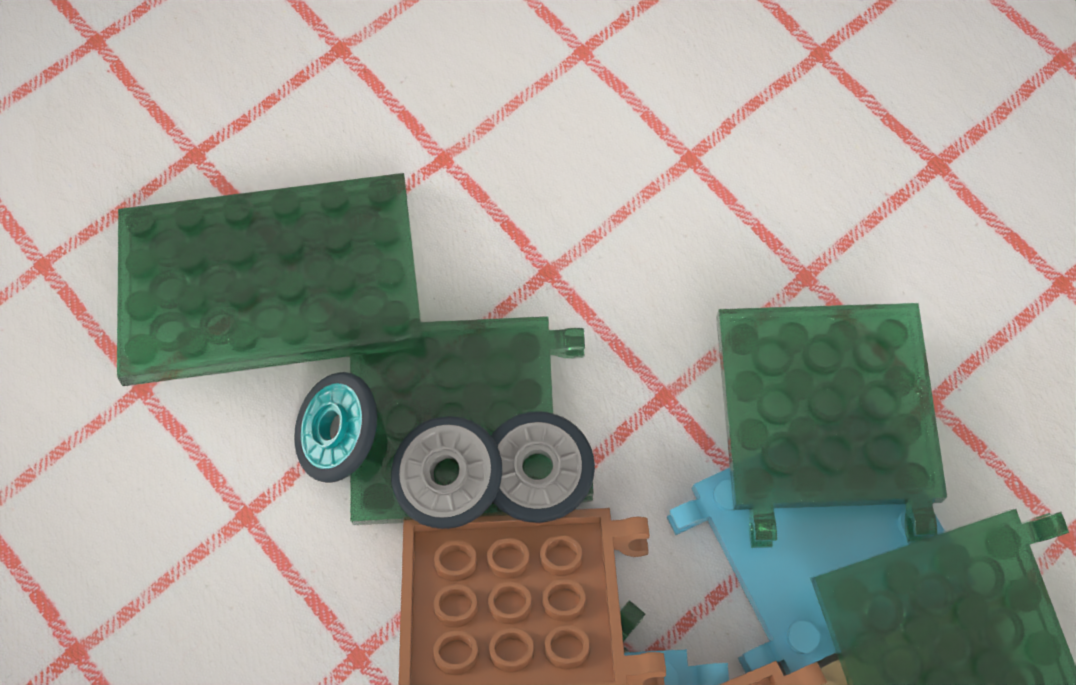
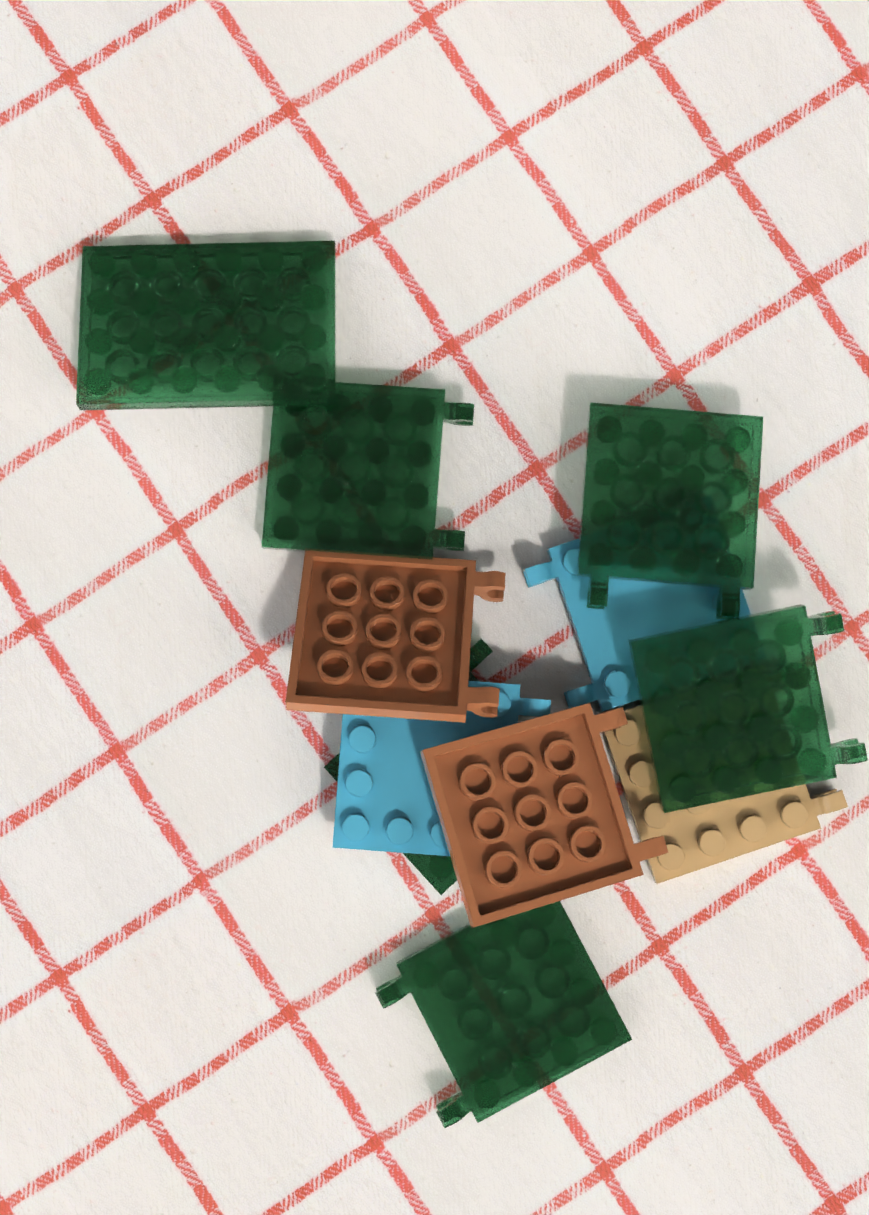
camera: 10 degrees right, 15 degrees up
(339, 457) = (260, 491): wheel -> none
(472, 490) = (365, 532): light grey wheel -> none
(571, 473) = (415, 493): light grey wheel -> none

